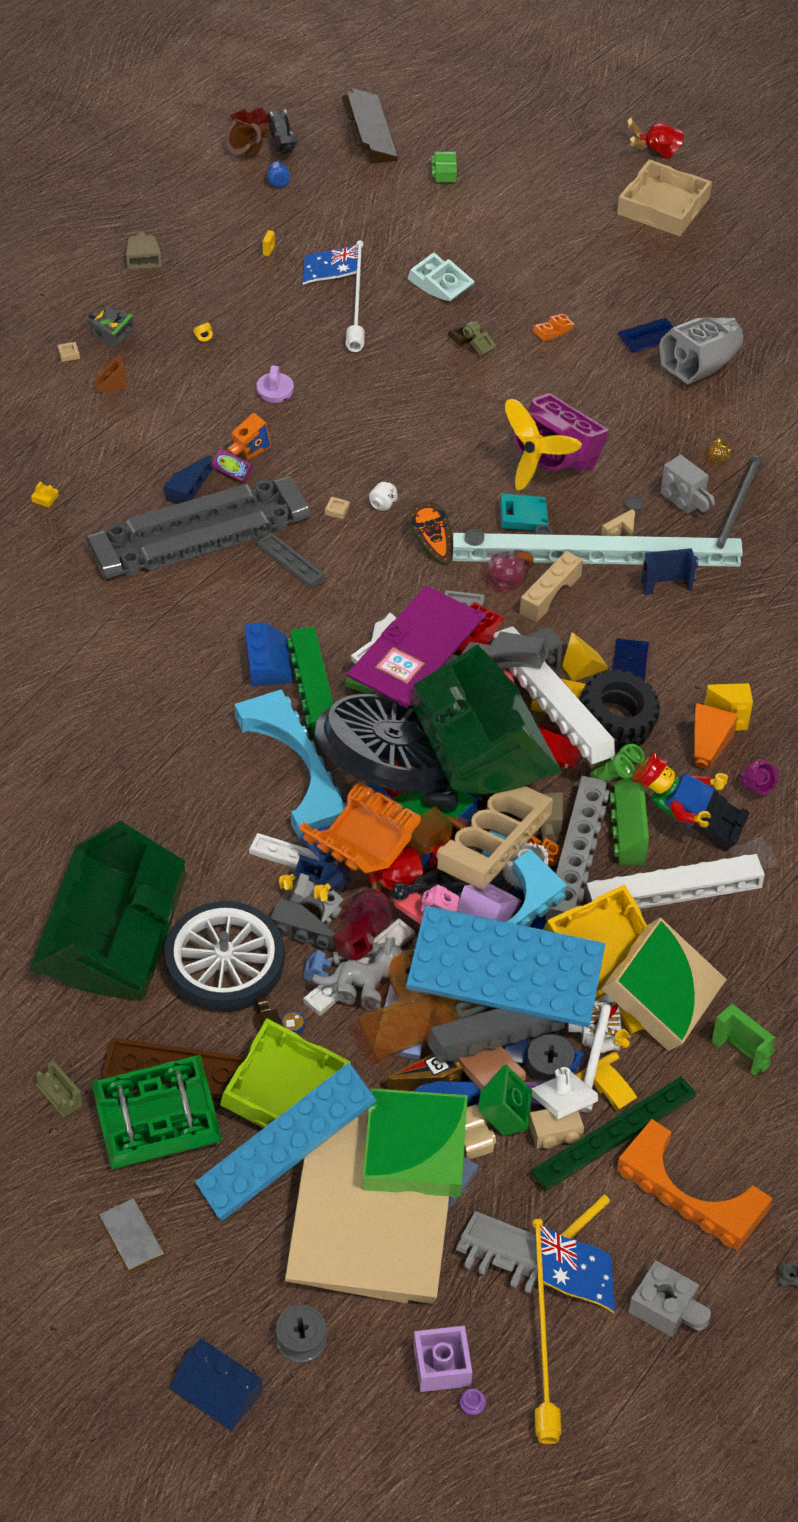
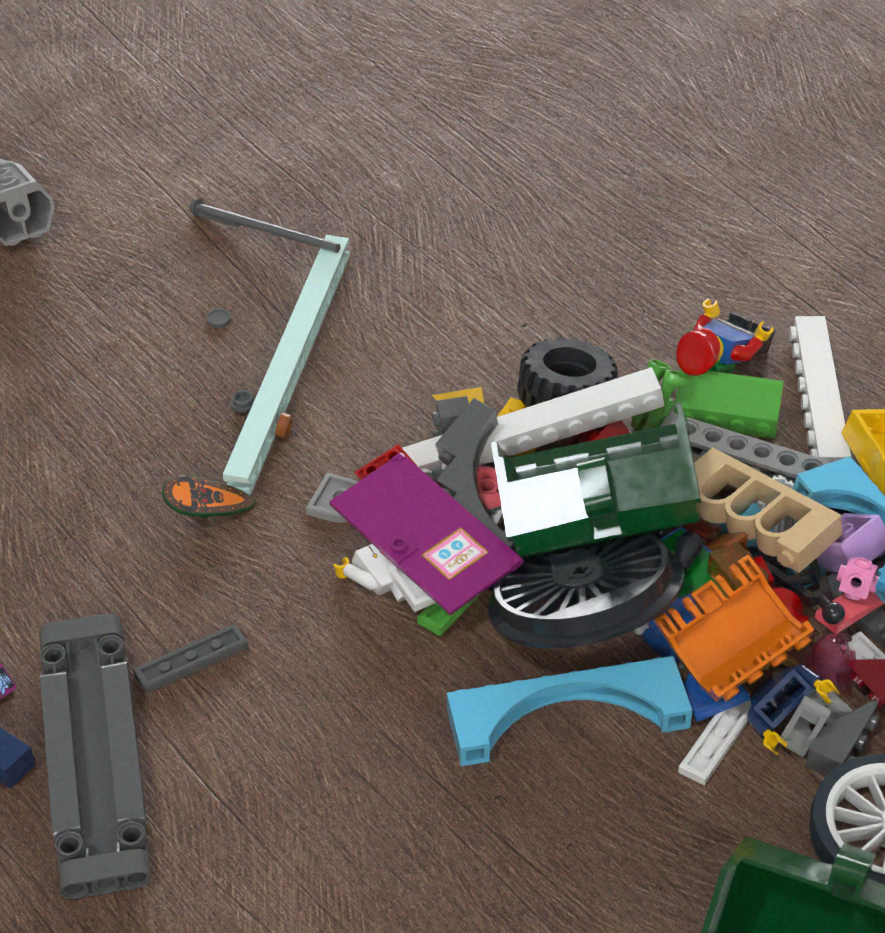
camera: 75 degrees left, 5 degrees down
(267, 655) = (366, 711): blue slope -> none
(310, 674) = (426, 663): green brick -> none
(337, 508) = (111, 593): tan tile -> none
(383, 496) = (118, 537): white head -> none
(474, 537) = (240, 454): dark grey piece -> none
(507, 572) = (305, 440): clear pink cylinder -> none
(527, 512) = (198, 405): teal container -> none
(539, 596) = (358, 421): tan arch -> none
(553, 437) = (112, 343): brick -> none
(620, 526) = (263, 329): tan slope -> none
(631, 656) = (474, 371): clear blue piece -> none
(667, 567) = (355, 296): dark blue panel -> none
(686, 485) = (226, 259): light grey brick -> none
(712, 733) = (614, 320): orange slope -> none
(719, 451) = (170, 229): clear yellow cone -> none
(732, 698) = (580, 292): yellow slope -> none
(760, 777) = (682, 297): magenta hair -> none

